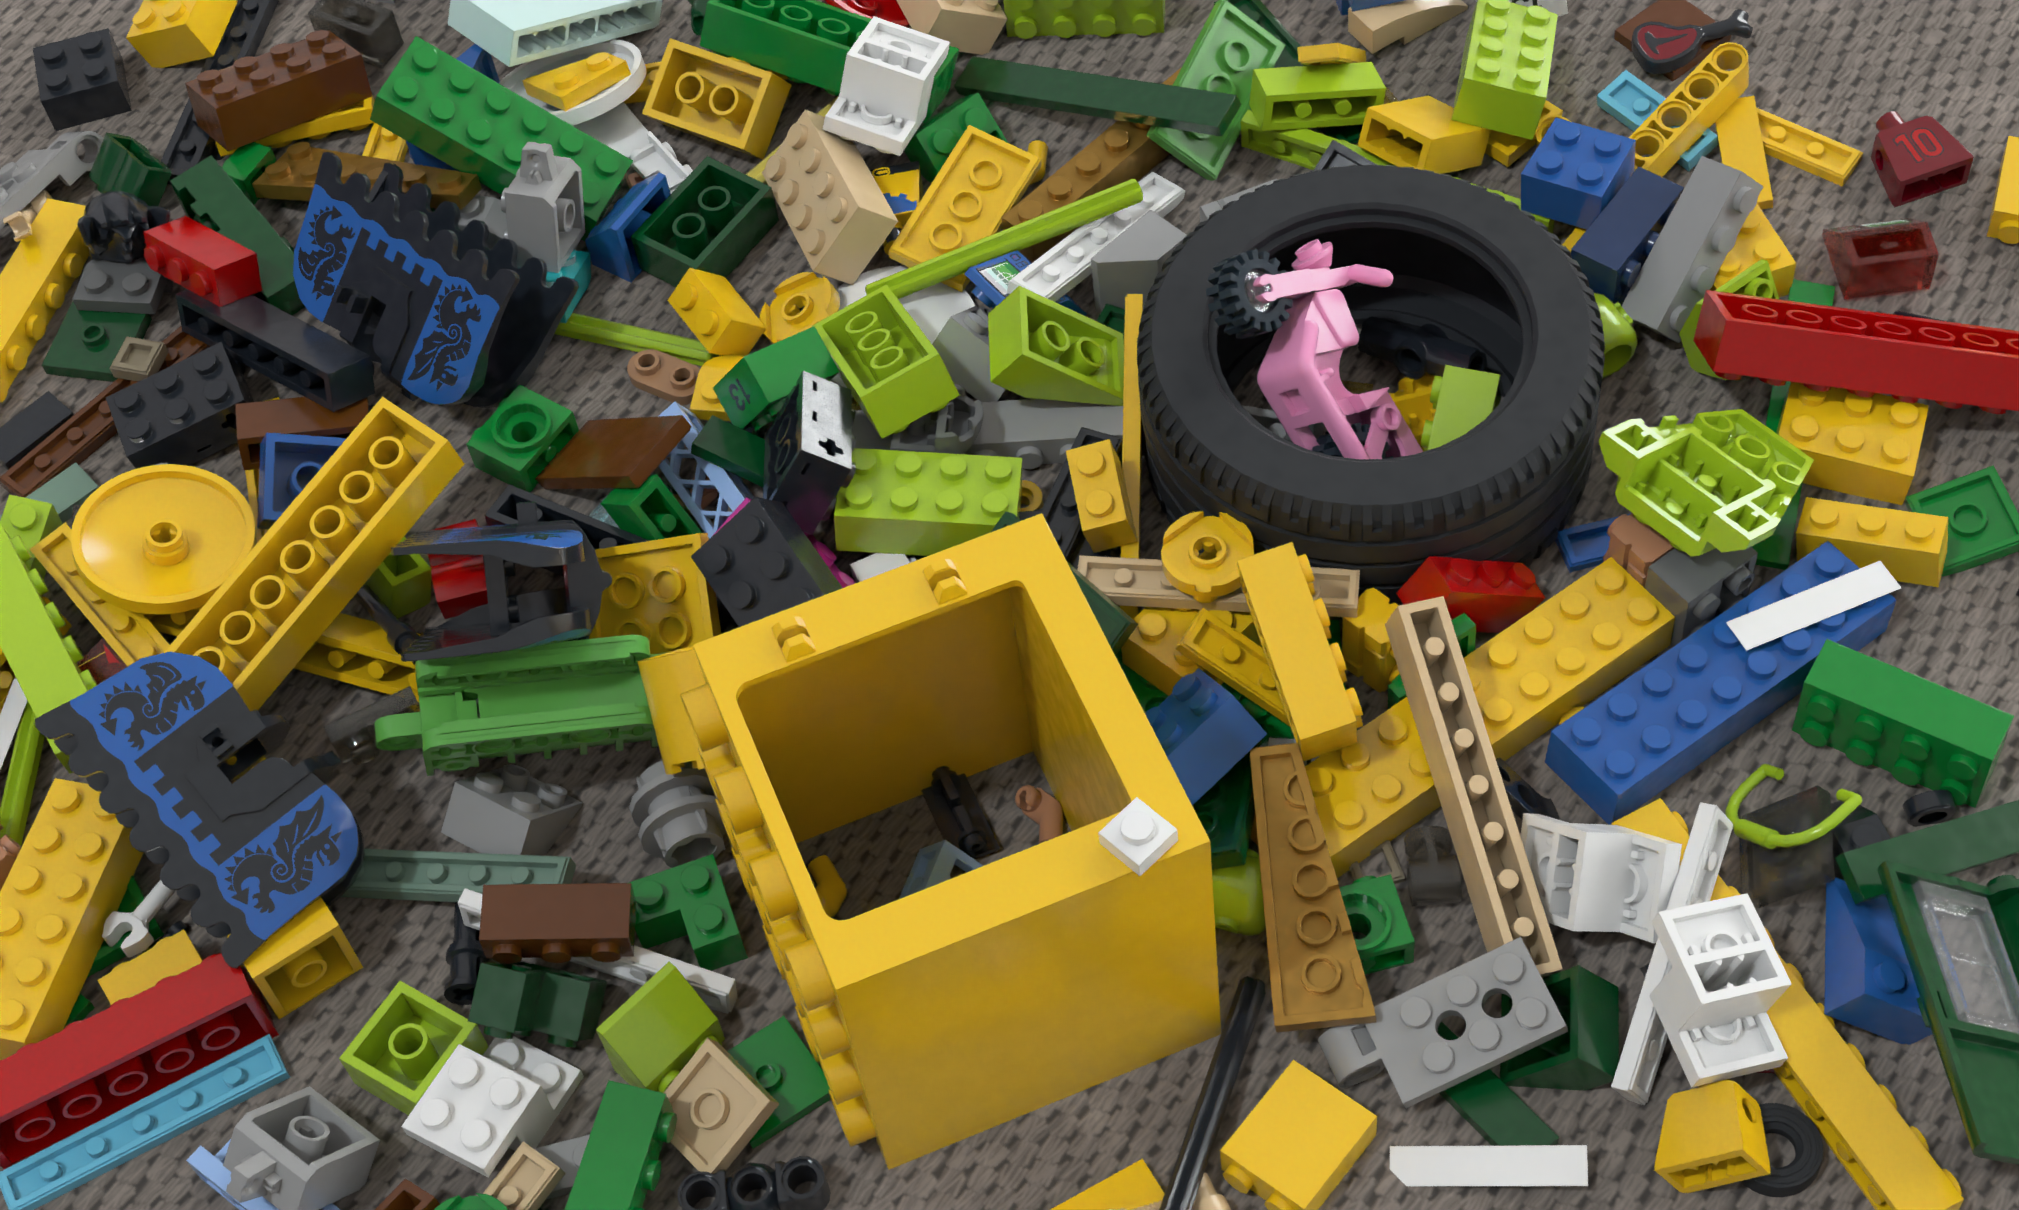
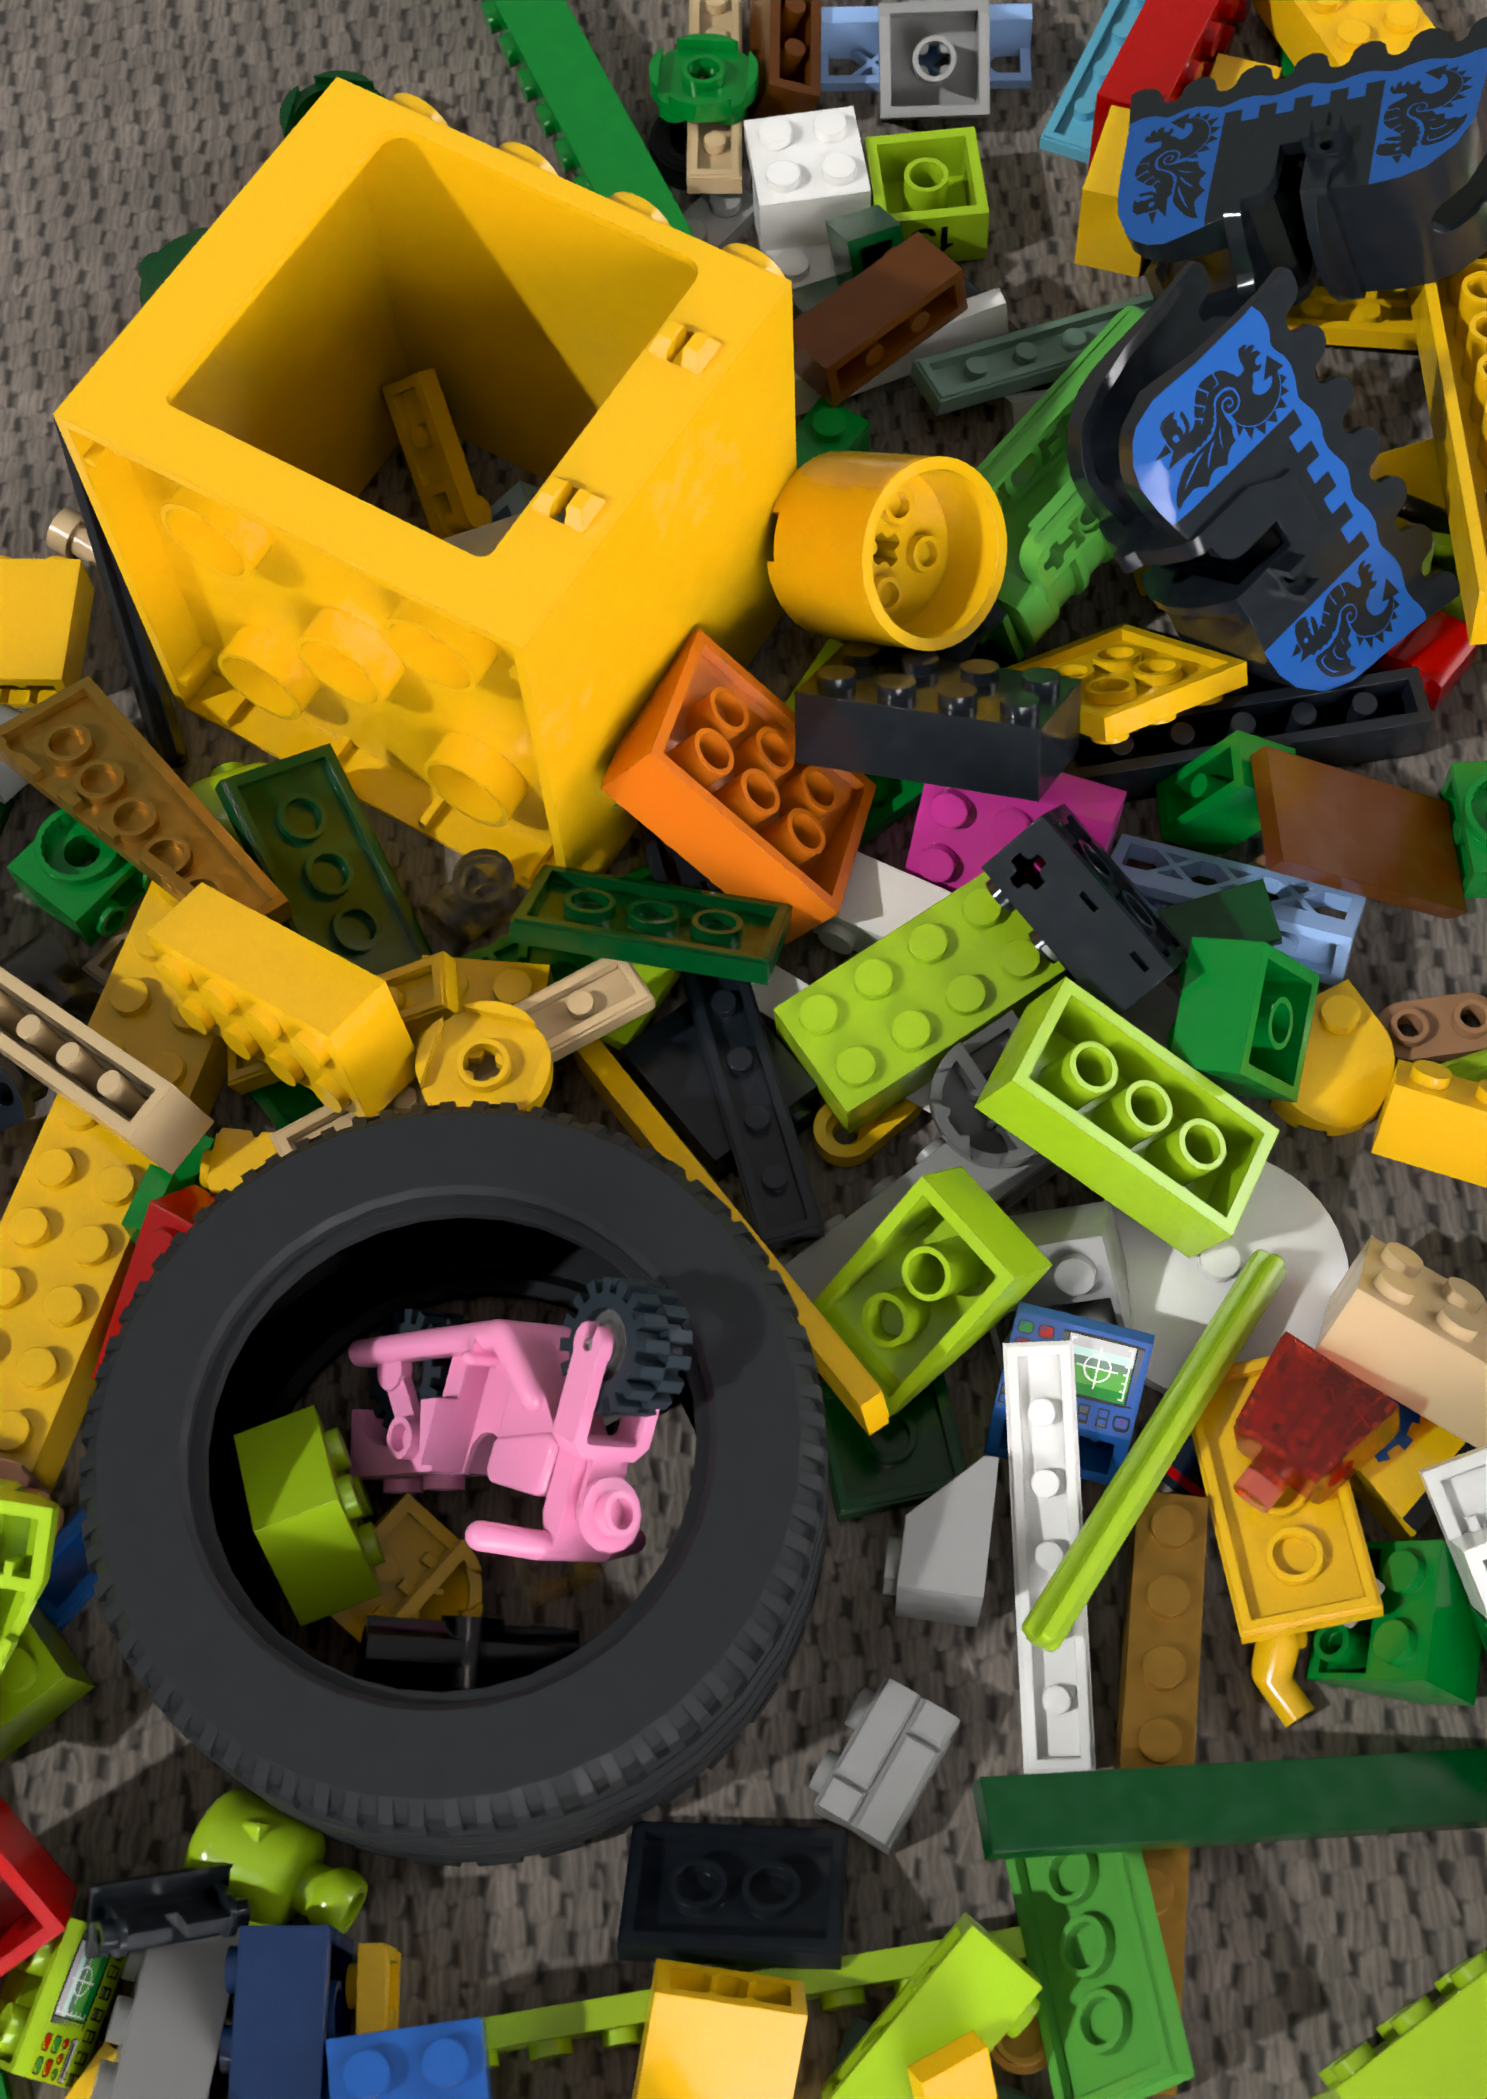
camera: 140 degrees right, 10 degrees up
(801, 290) = (1329, 1178): yellow plate -> none
(932, 200) = (1308, 1426): none -> clear red torso
(1101, 496) = (697, 1105): yellow brick -> none
(1138, 836) = (126, 360): white plate -> none
(1203, 732) = (378, 870): blue brick -> none
(1669, 295) = (162, 1910): none -> black hinge

